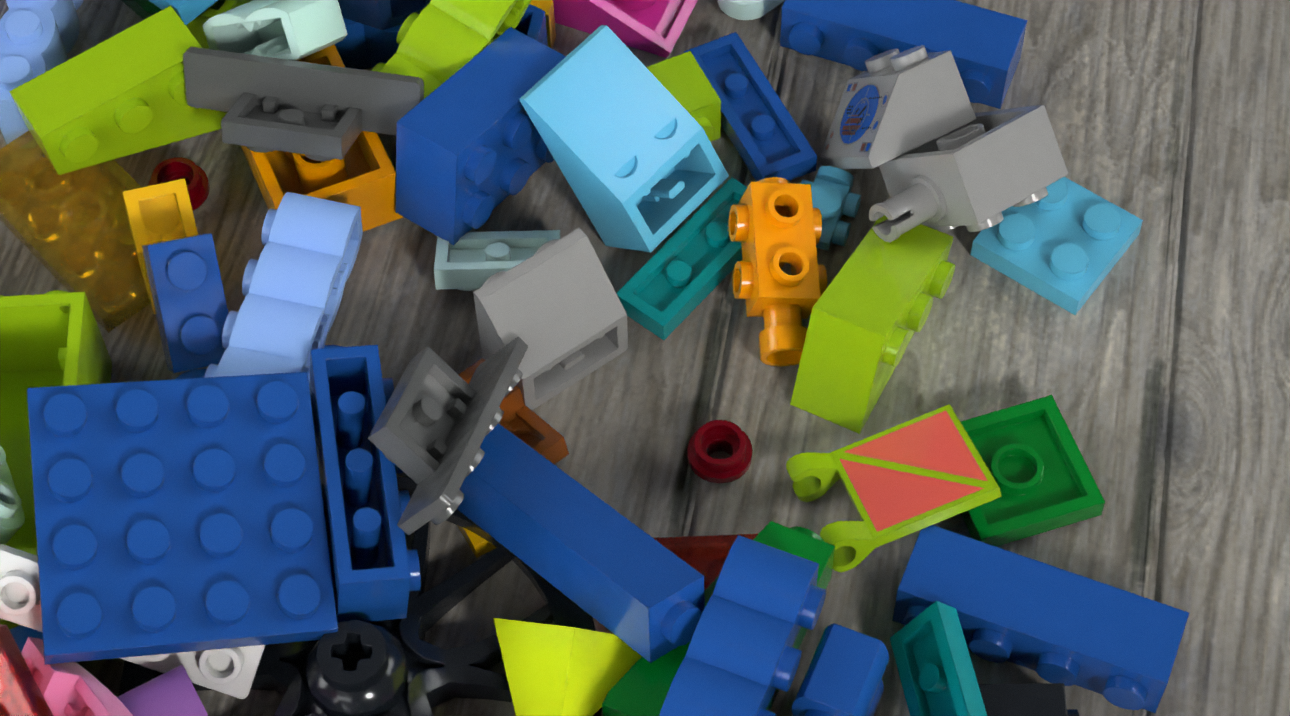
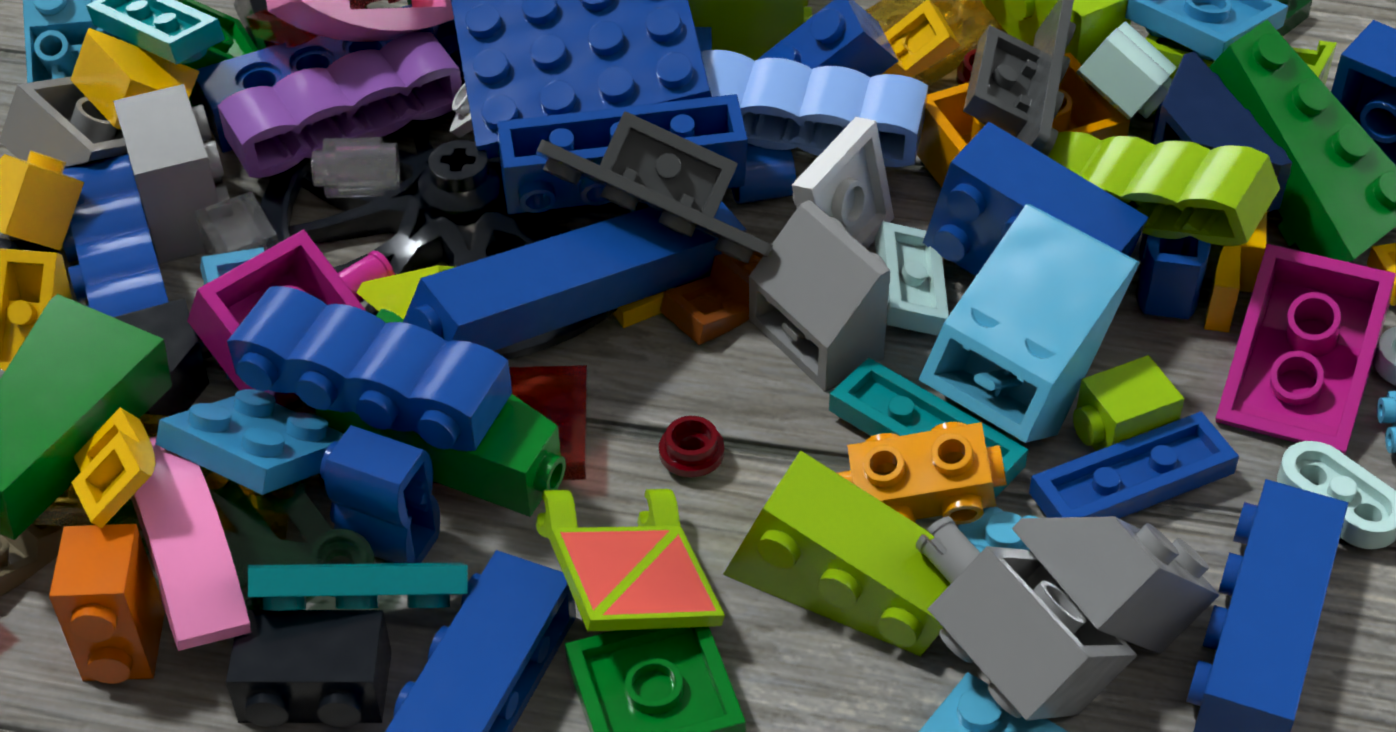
camera: 90 degrees right, 10 degrees down
(411, 292) = (850, 181): none -> white plate

